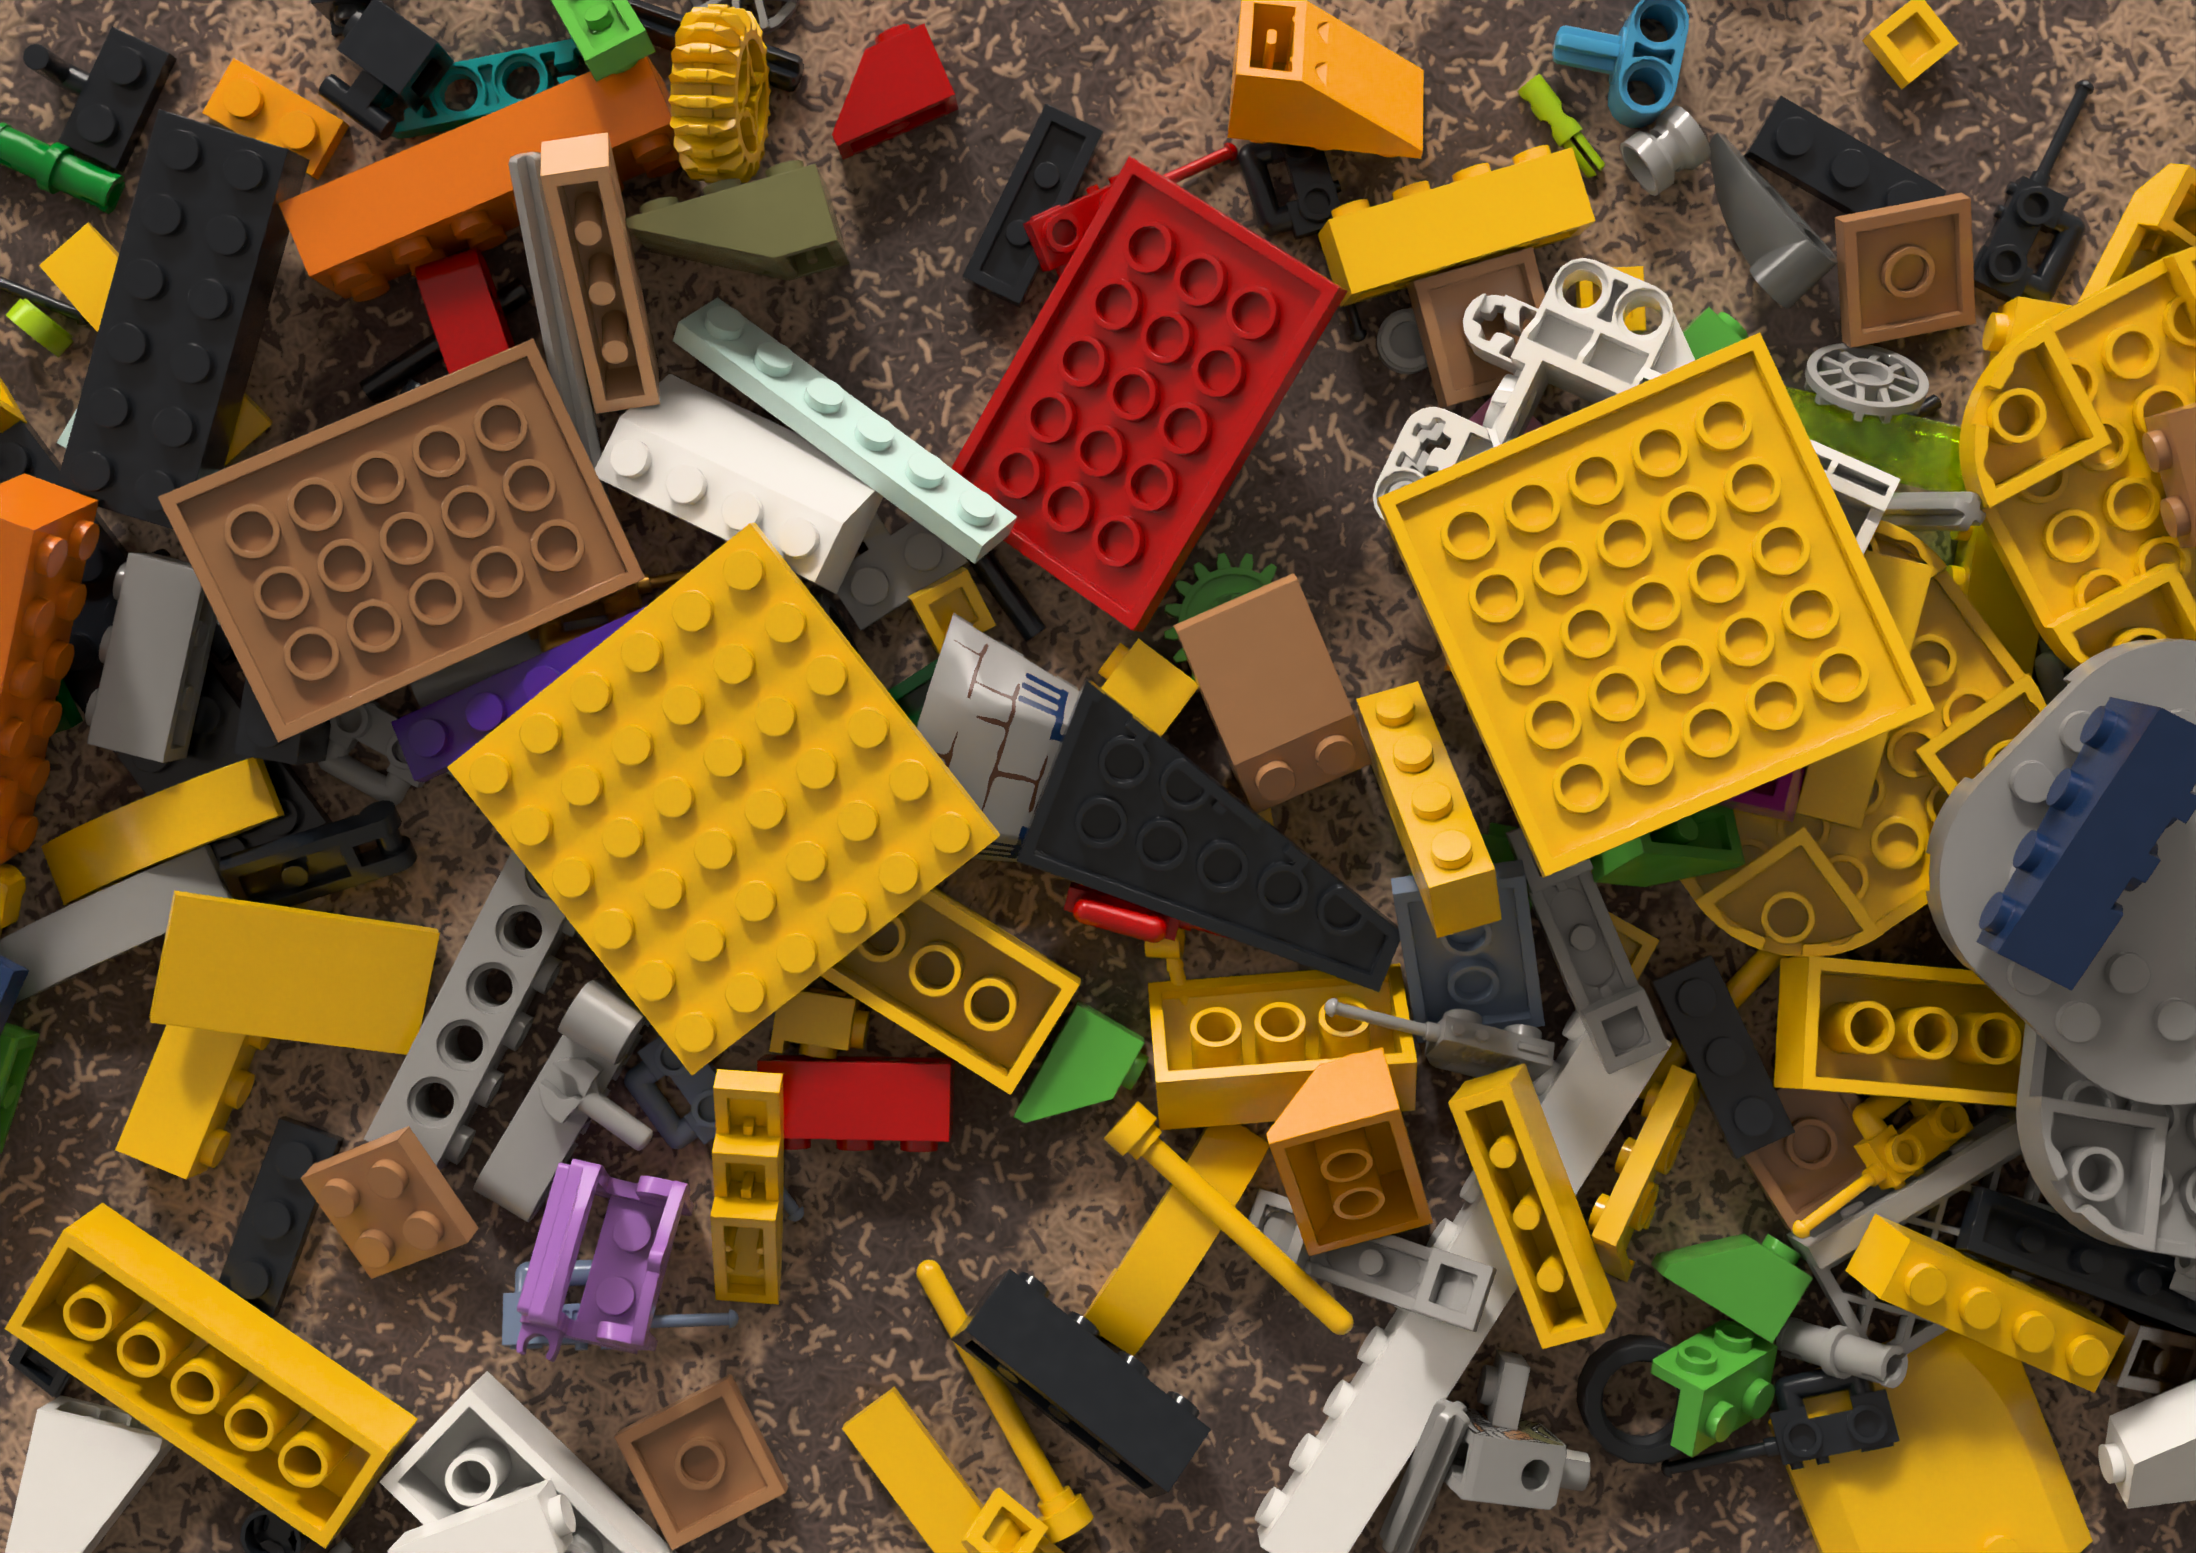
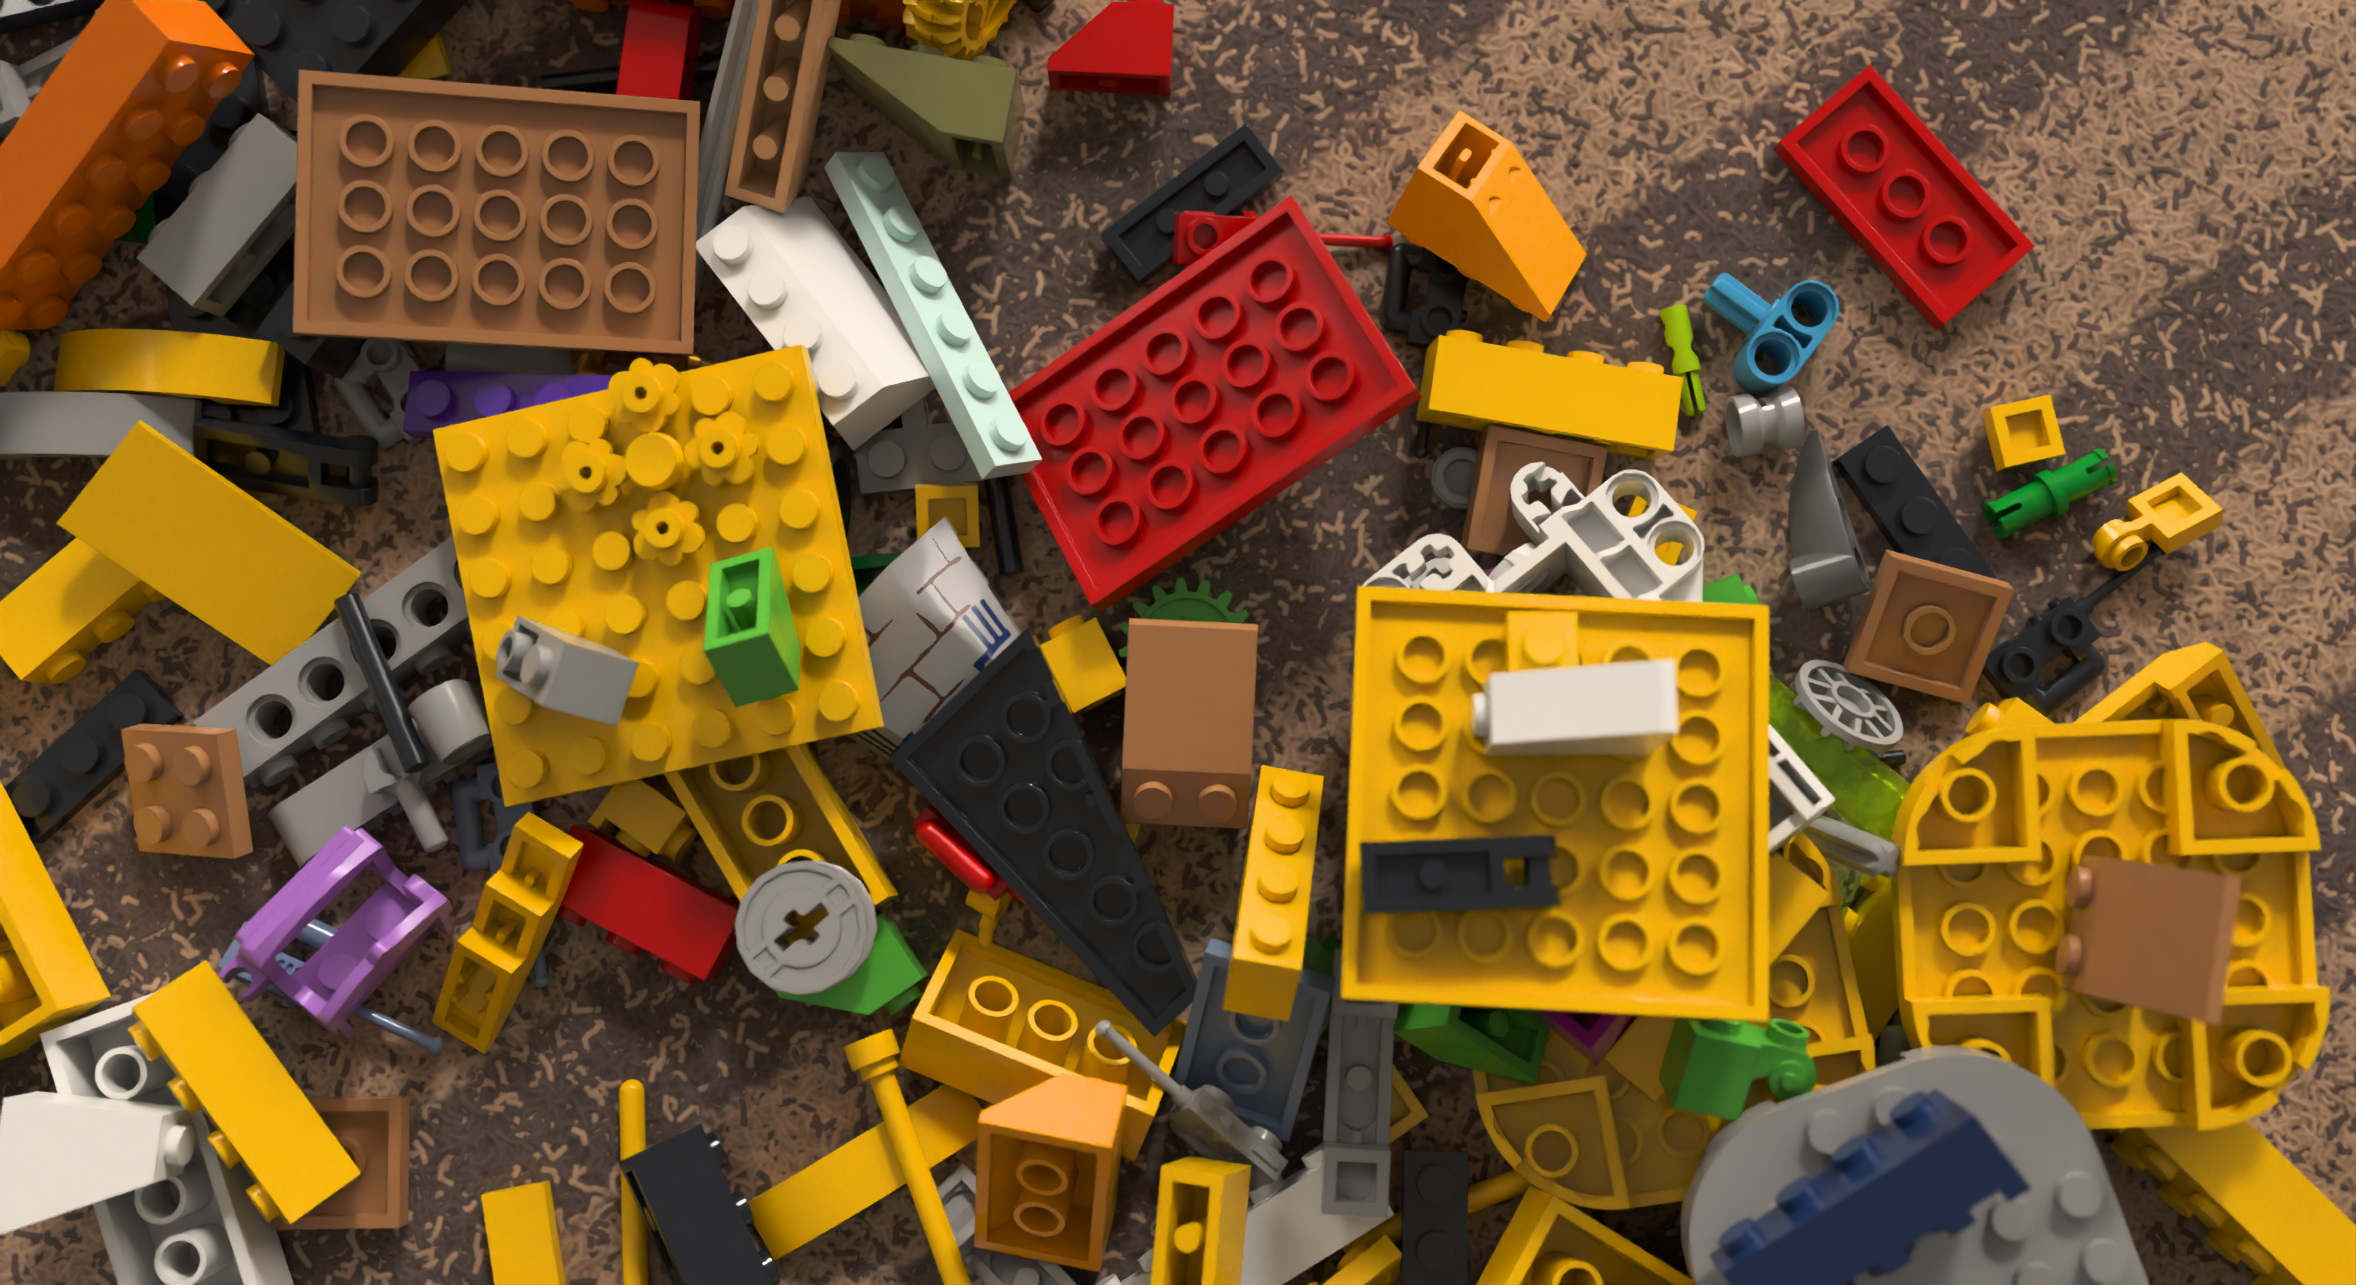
camera: 30 degrees right, 5 degrees down
(519, 1019) = (381, 683): none -> black bar
(592, 1443) = (243, 1093): none -> yellow brick
(673, 696) = (656, 462): none -> yellow plant
(690, 927) = (565, 671): none -> light grey slope
(841, 805) = (751, 628): none -> bright green slope
(1042, 1080) = (769, 917): none -> light grey piece
(1573, 473) = (1540, 640): none -> yellow plate
(1596, 718) = (1456, 875): none -> black plate
(1636, 516) = (1578, 710): none -> white slope
(1901, 770) = (1716, 1060): none -> bright green brick
(1961, 86) = (2050, 493): none -> green pin
(2077, 54) = (2166, 514): none -> yellow plate

